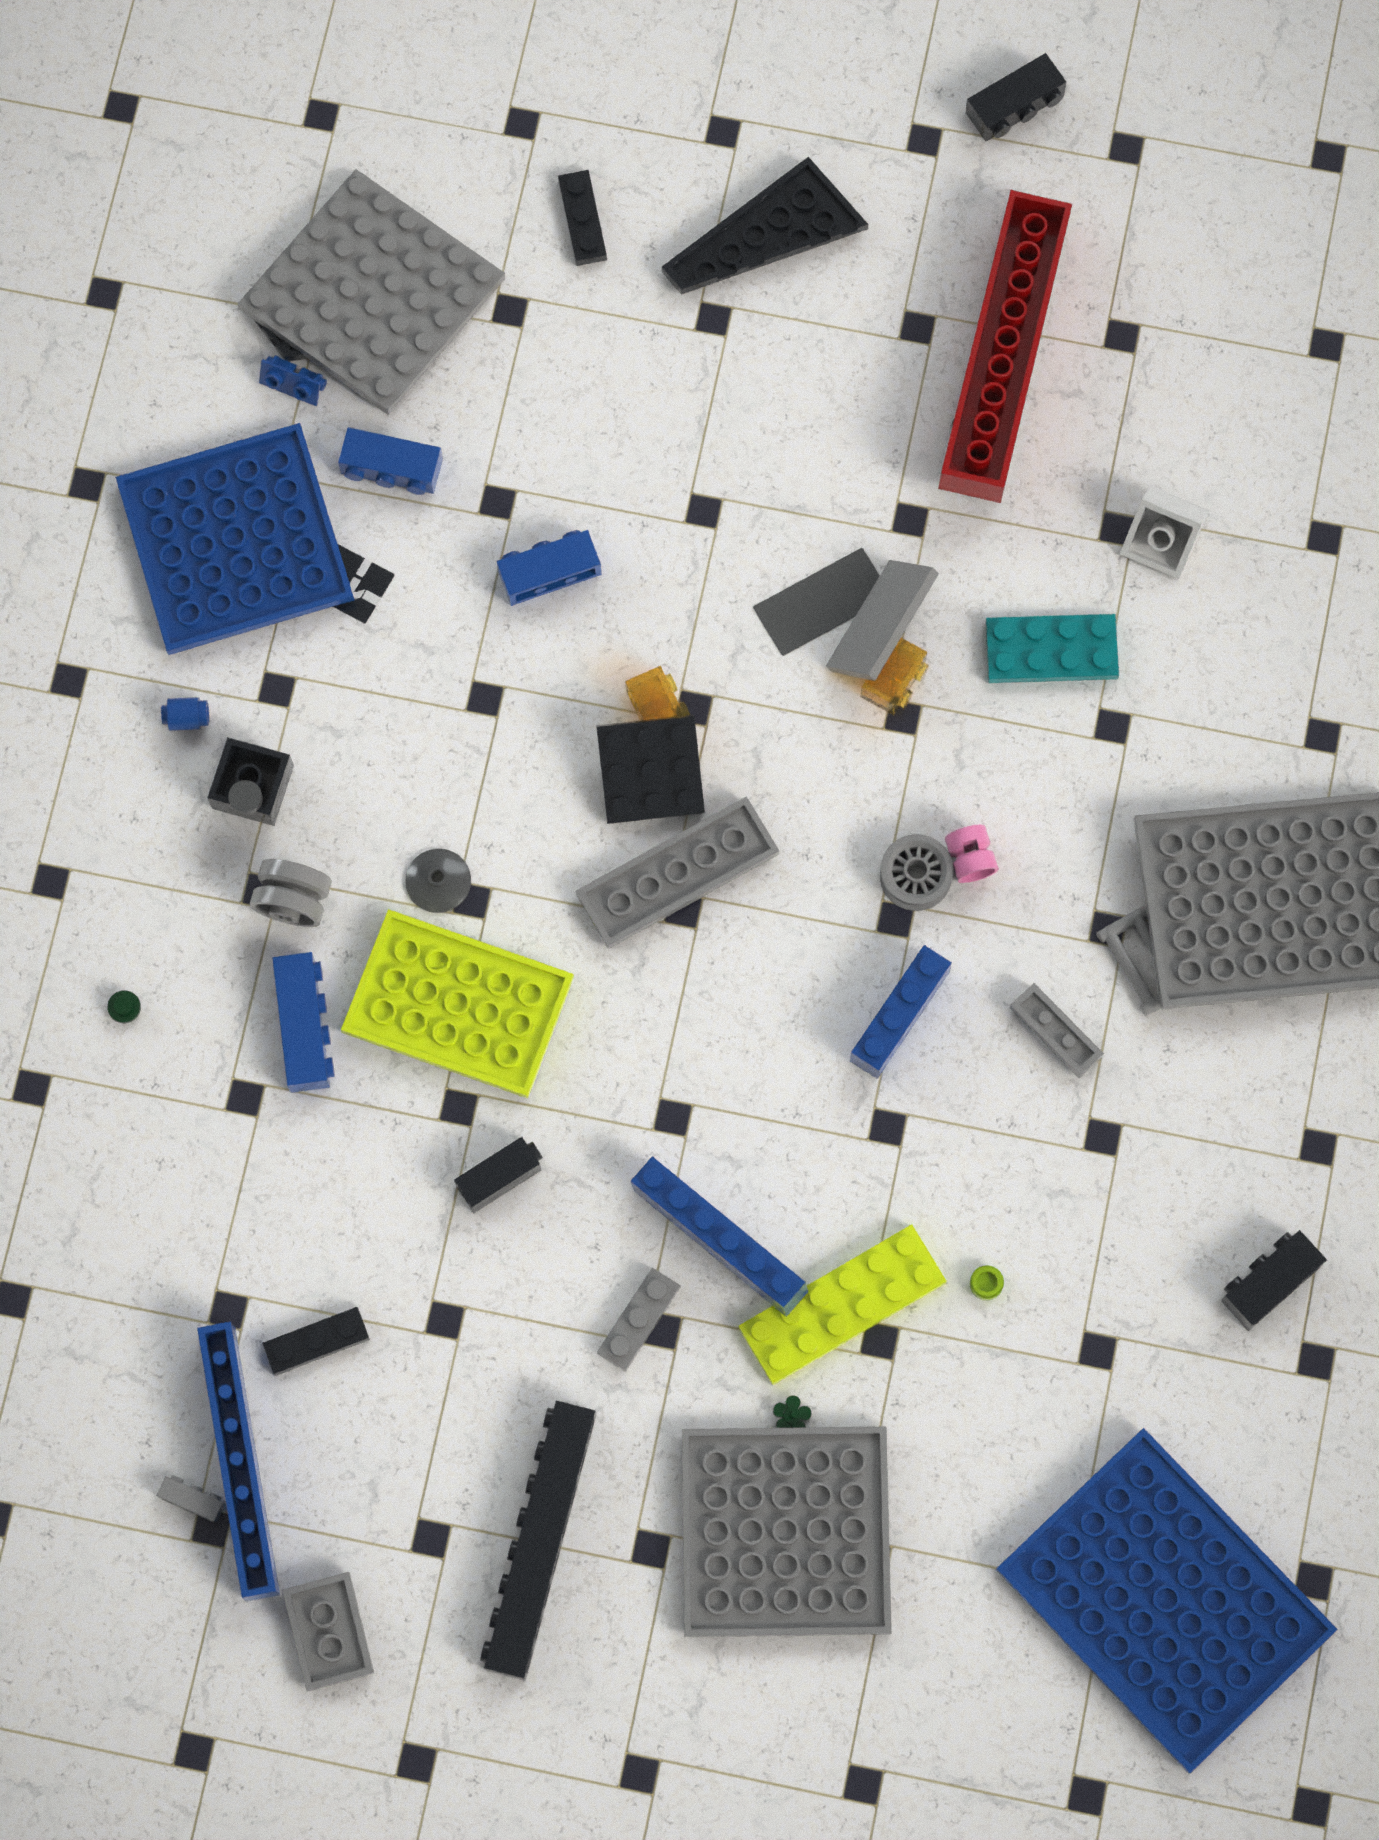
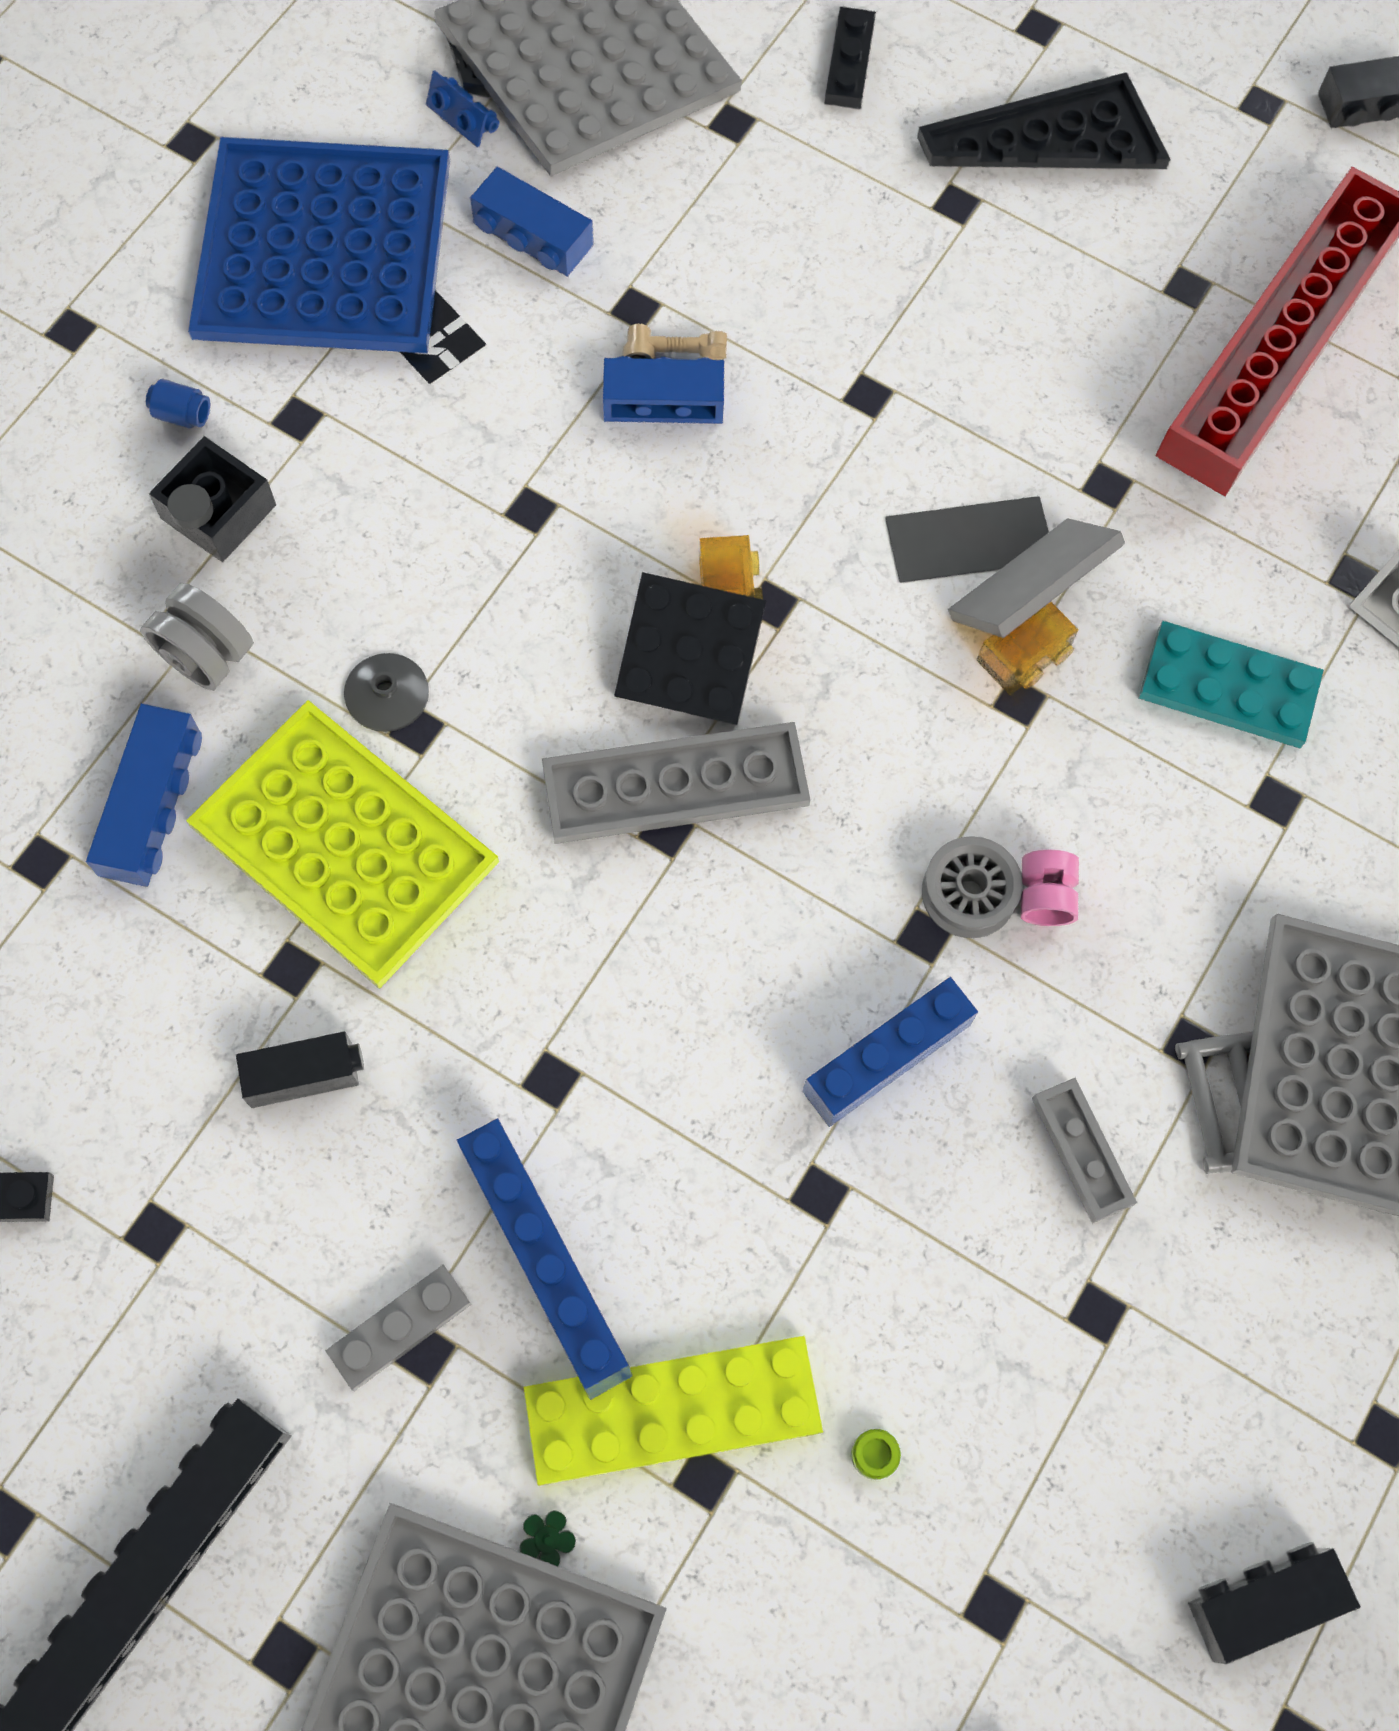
camera: 15 degrees right, 5 degrees down
(518, 535) = (643, 345): none -> tan brick

